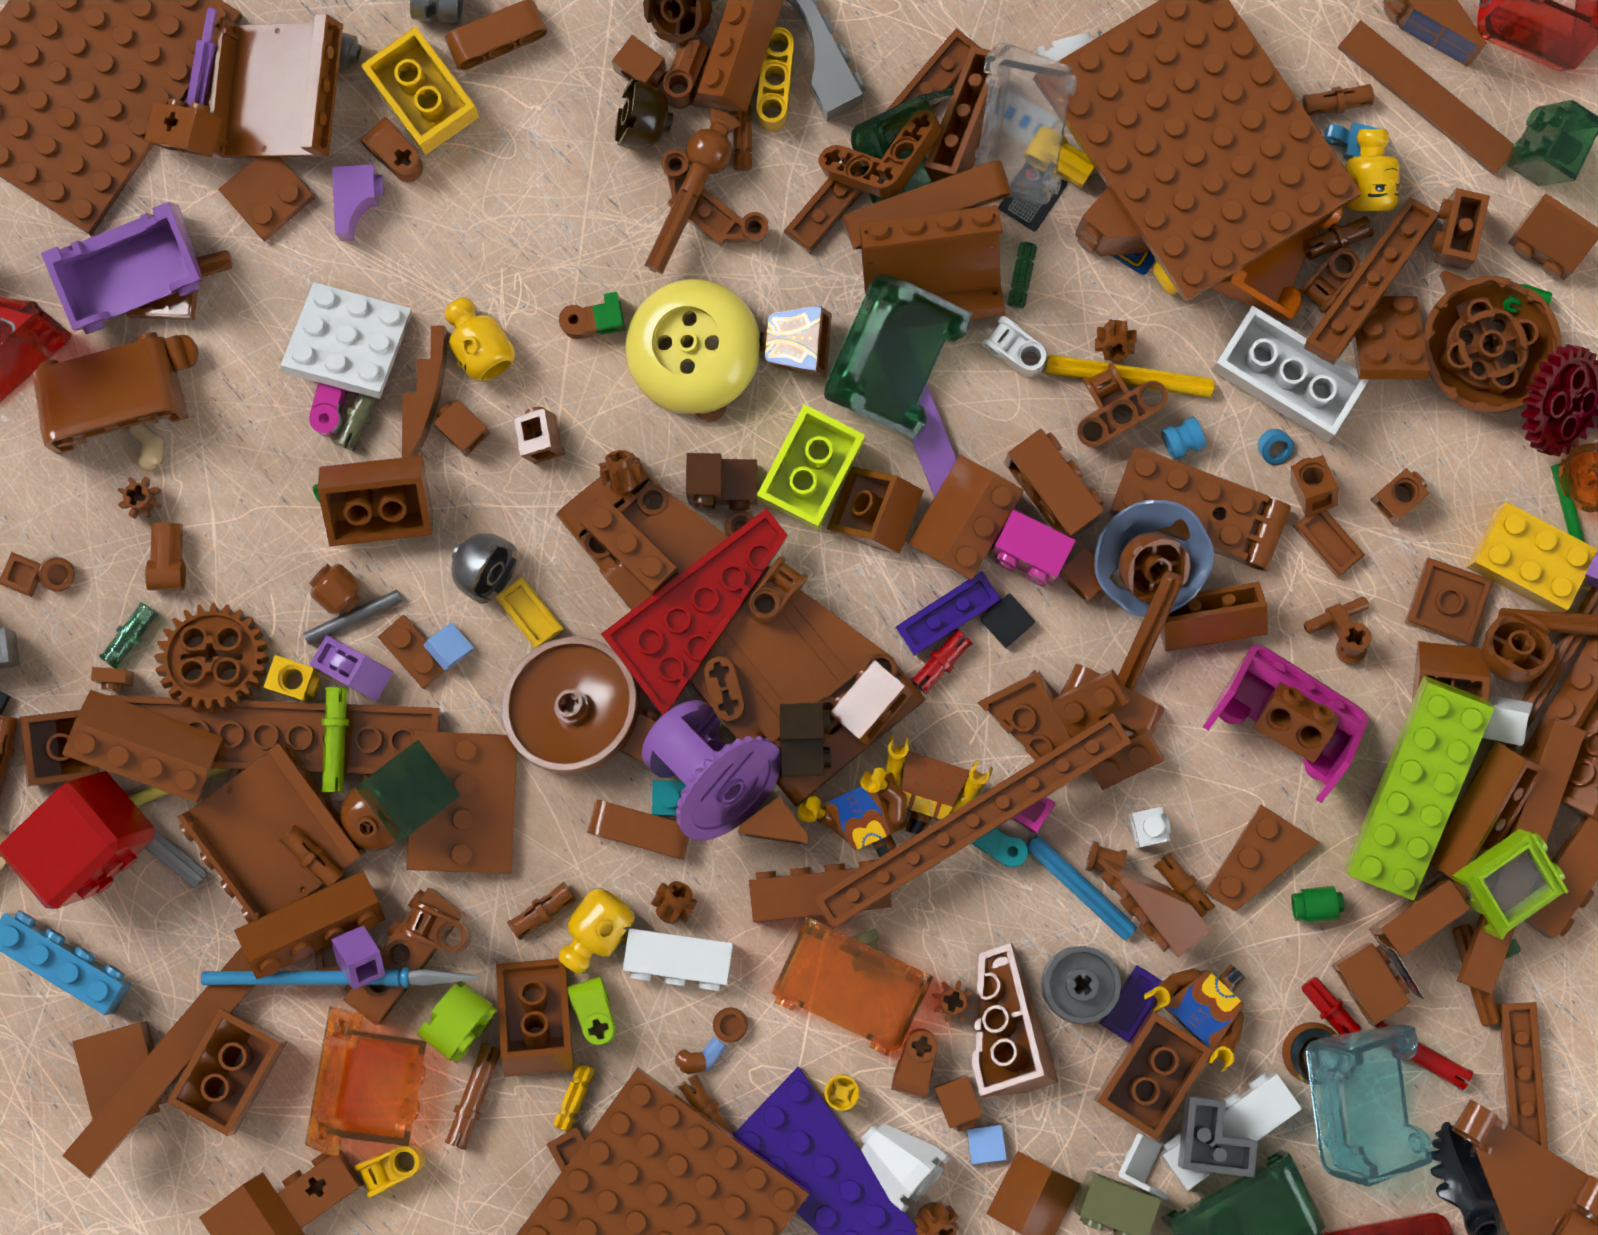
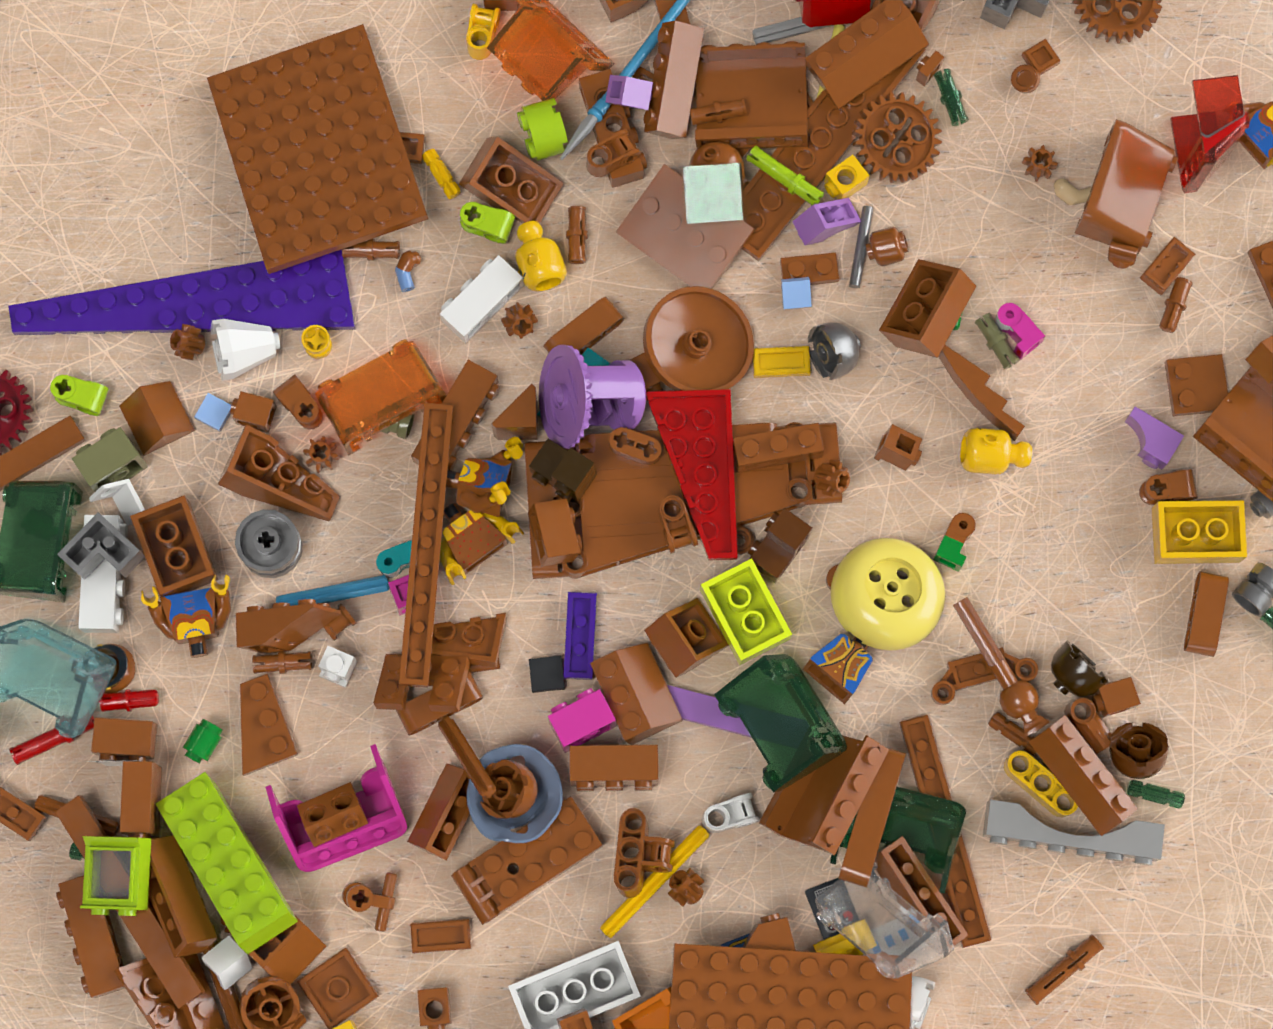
camera: 120 degrees right, 5 degrees down
(124, 268) = (1206, 251): medium lavender windscreen -> none
(166, 568) = (980, 149): dark orange piece -> none
(346, 340) = (1054, 365): white plate -> none
(461, 426) = (941, 401): dark orange brick -> none
(473, 1096) = (482, 101): dark orange pin -> none
(730, 1024) = (414, 303): dark orange tile -> none
(917, 134) = (919, 811): dark orange beam -> none
(941, 661) = (551, 609): red pin -> none
(1022, 275) = (779, 858): clear green axle -> none
(1081, 576) = (542, 741): dark orange brick -> none
(1131, 1006) = (227, 562): dark purple tile -> none
(1183, 437) = (584, 885): dark azure wheel -> none
(1269, 438) = (540, 951): dark azure piece -> none
(1318, 496) = (474, 948): dark orange brick -> none

